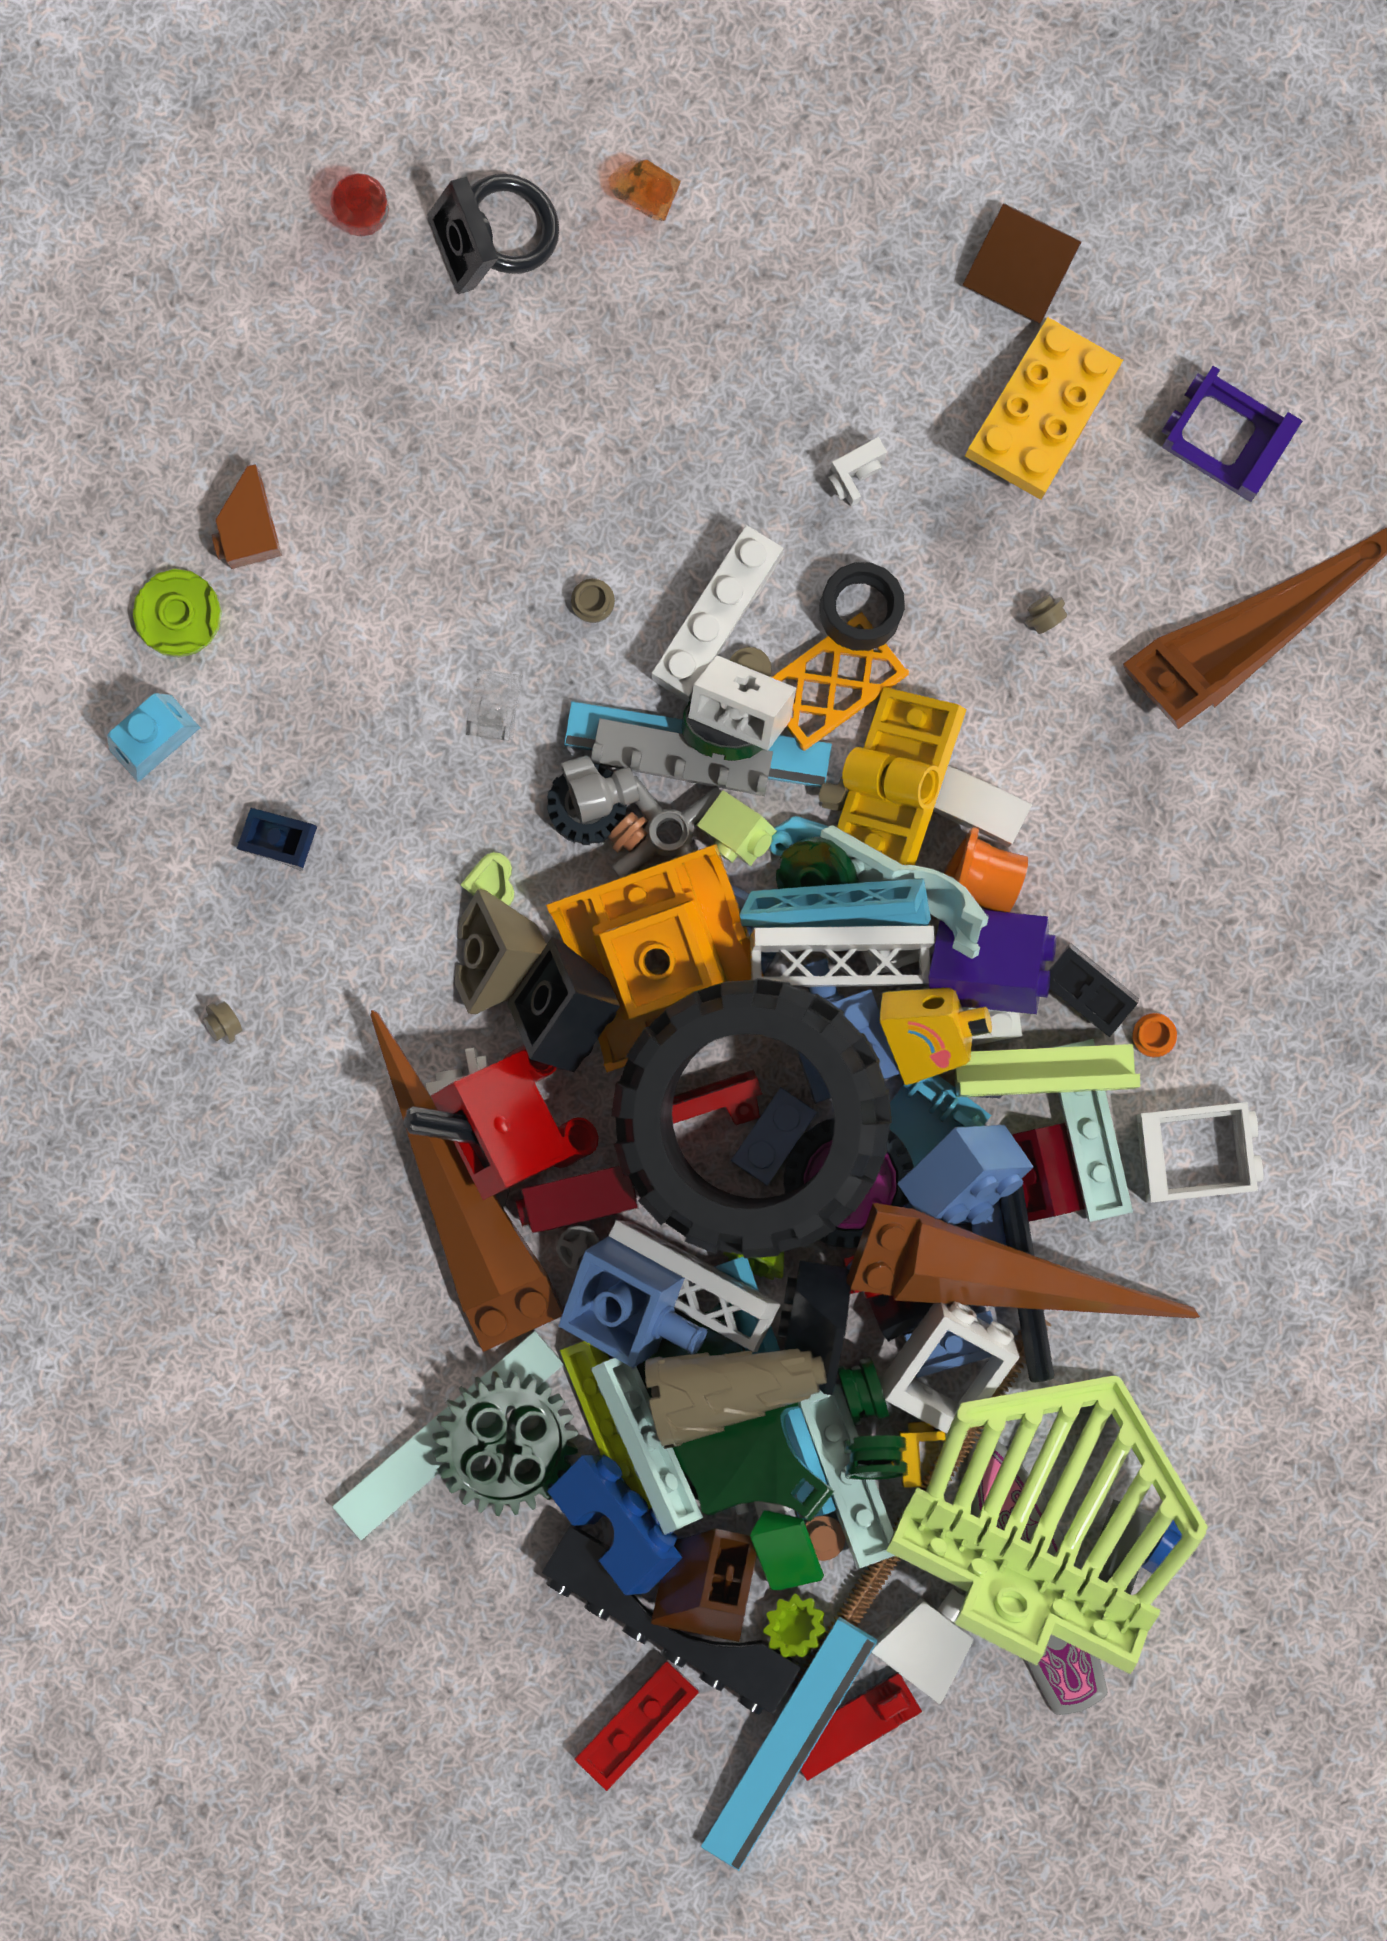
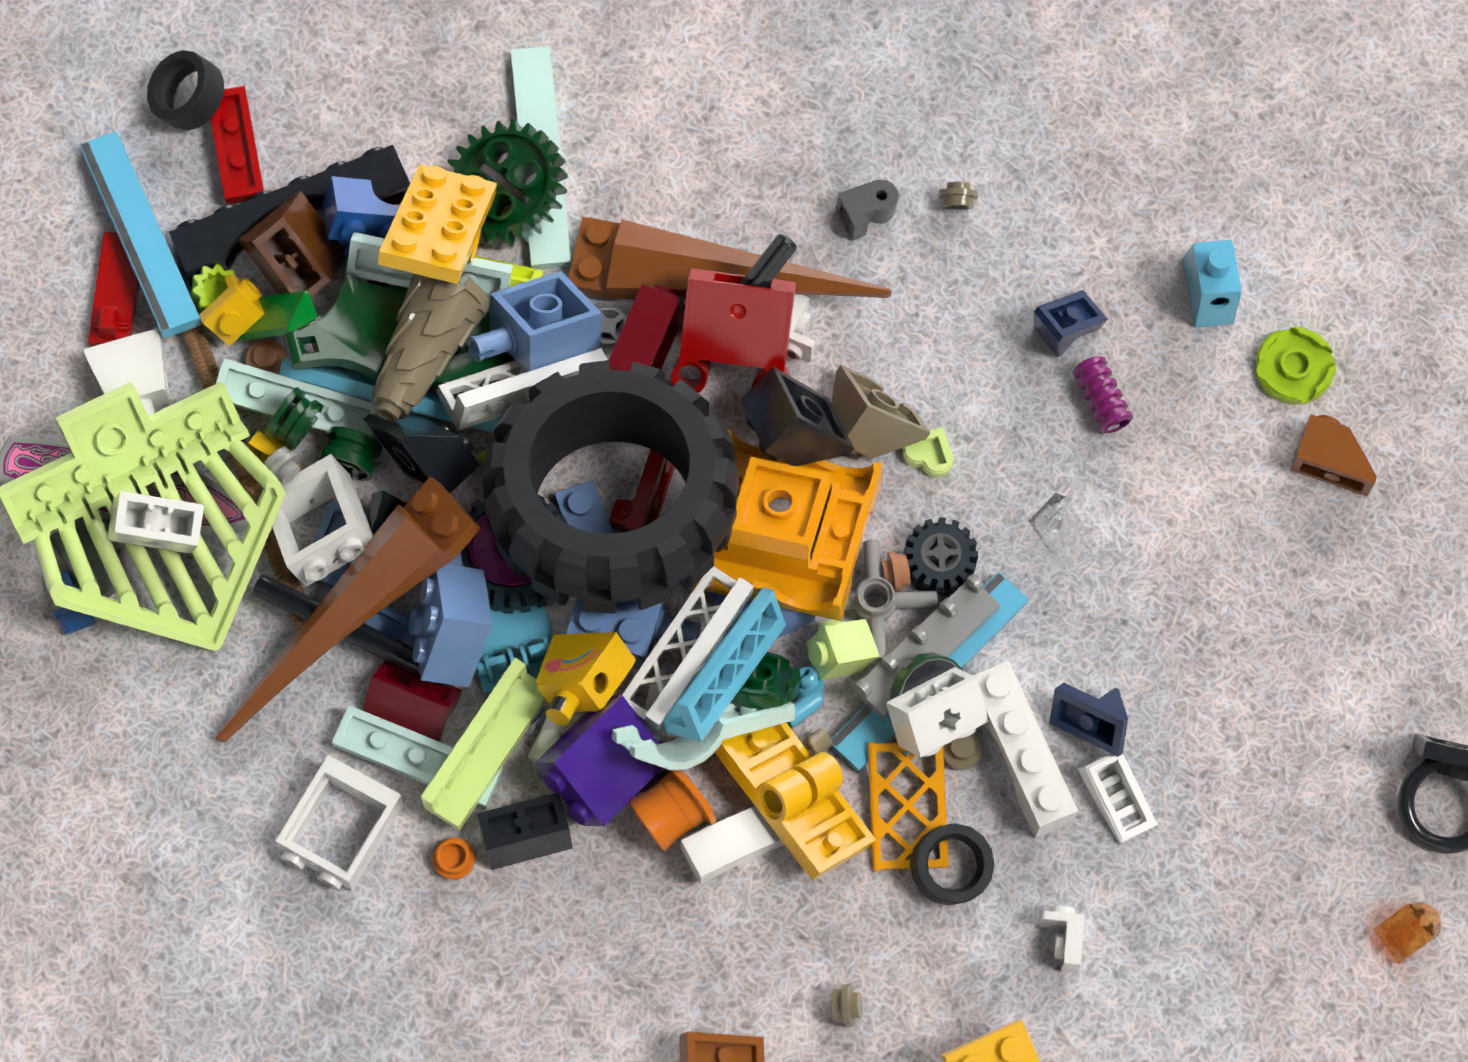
camera: 120 degrees right, 15 degrees down
(283, 1096) = (867, 204): none -> dark grey leg
(329, 763) = (1102, 394): none -> magenta piece
(592, 600) = (1098, 669): dark tan plate -> none
(595, 795) = (943, 554): light grey piece -> none
(609, 1457) = (438, 224): none -> yellow plate
(630, 1835) = (168, 77): none -> black tyre
(649, 563) = (1091, 719): none -> dark blue slope
(681, 542) = (1104, 802): none -> white slope
(804, 1594) = (233, 310): none -> yellow bracket
(927, 1433) = (284, 464): none -> light grey plate
(1066, 1501) = (155, 522): none -> white brick

